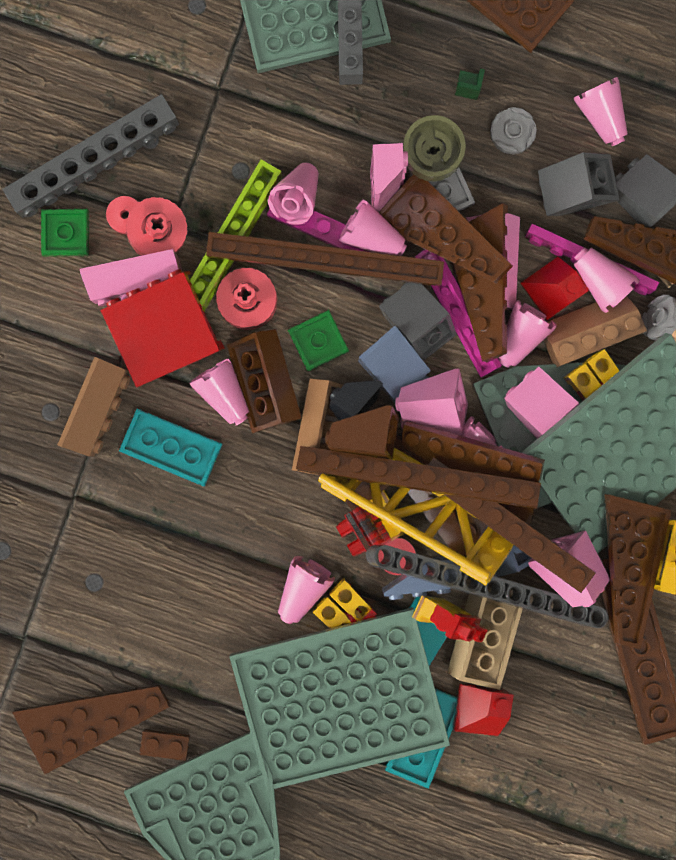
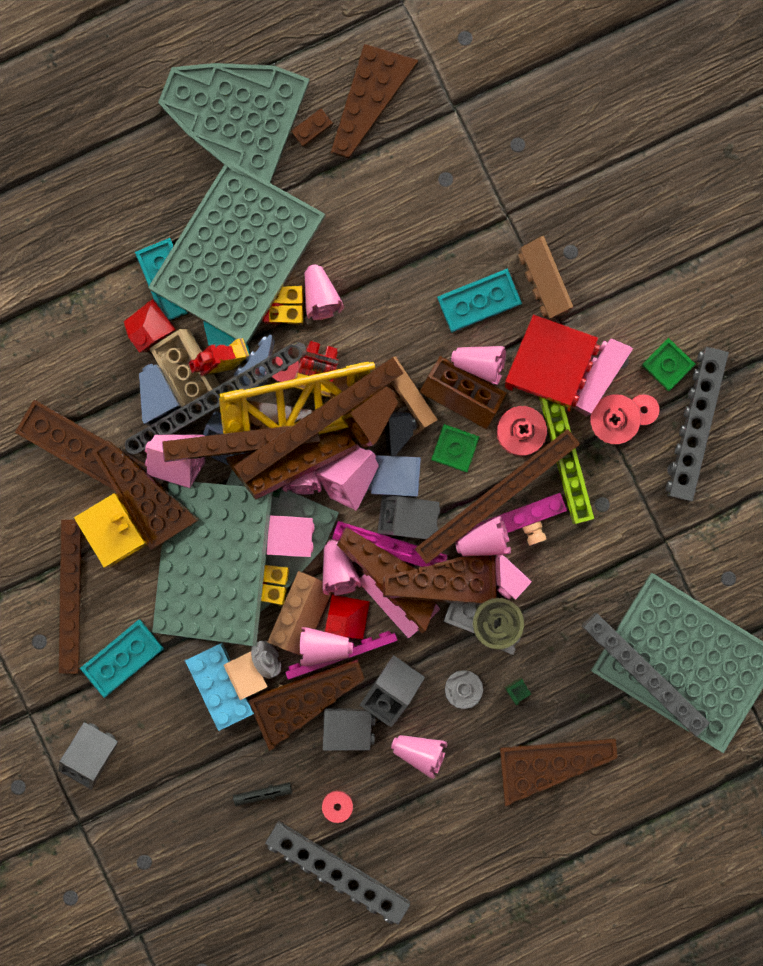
camera: 140 degrees right, 0 degrees up
(295, 195) = (553, 519): bright pink cone -> none
(324, 200) = (534, 533): none -> light nougat wheel
(536, 642) = (156, 395): none -> sand blue slope

